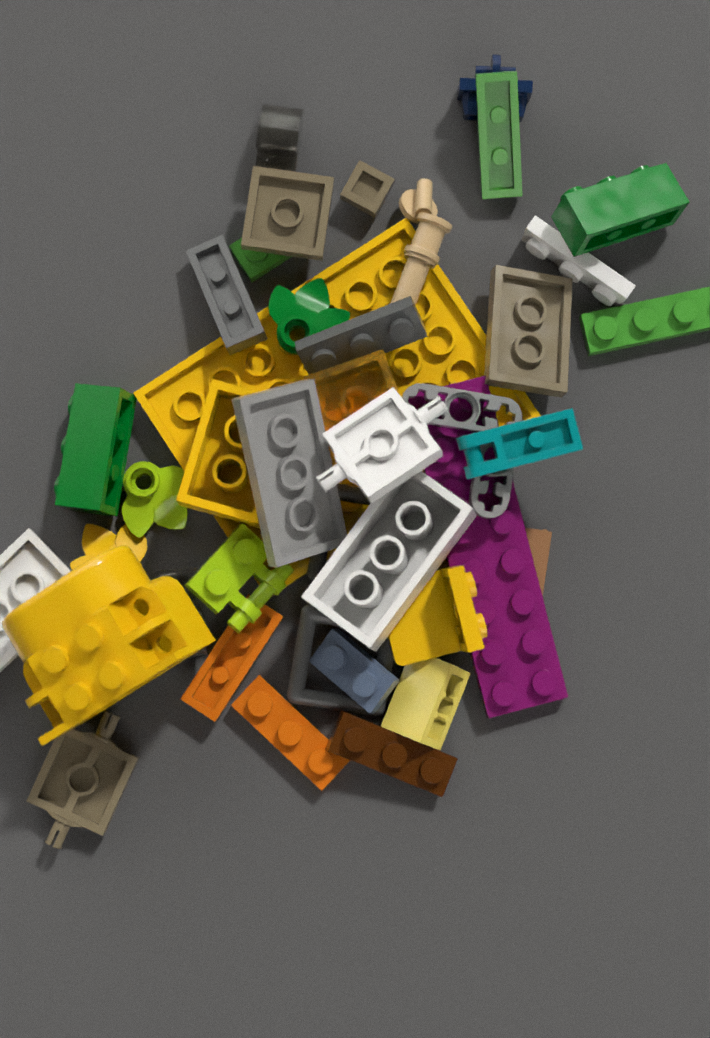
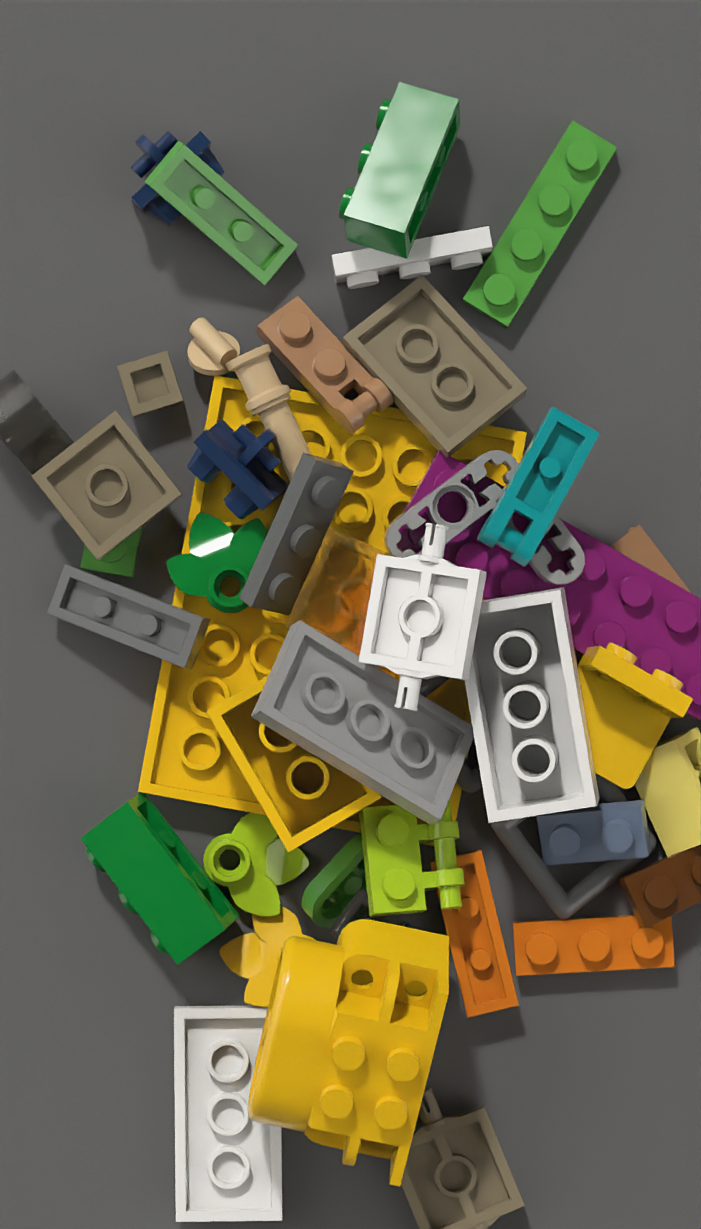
camera: 45 degrees left, 5 degrees up
(190, 549) = (336, 885): none -> bright green plate
(374, 273) = (243, 461): none -> dark blue hips
(470, 270) = (323, 365): none -> medium nougat plate

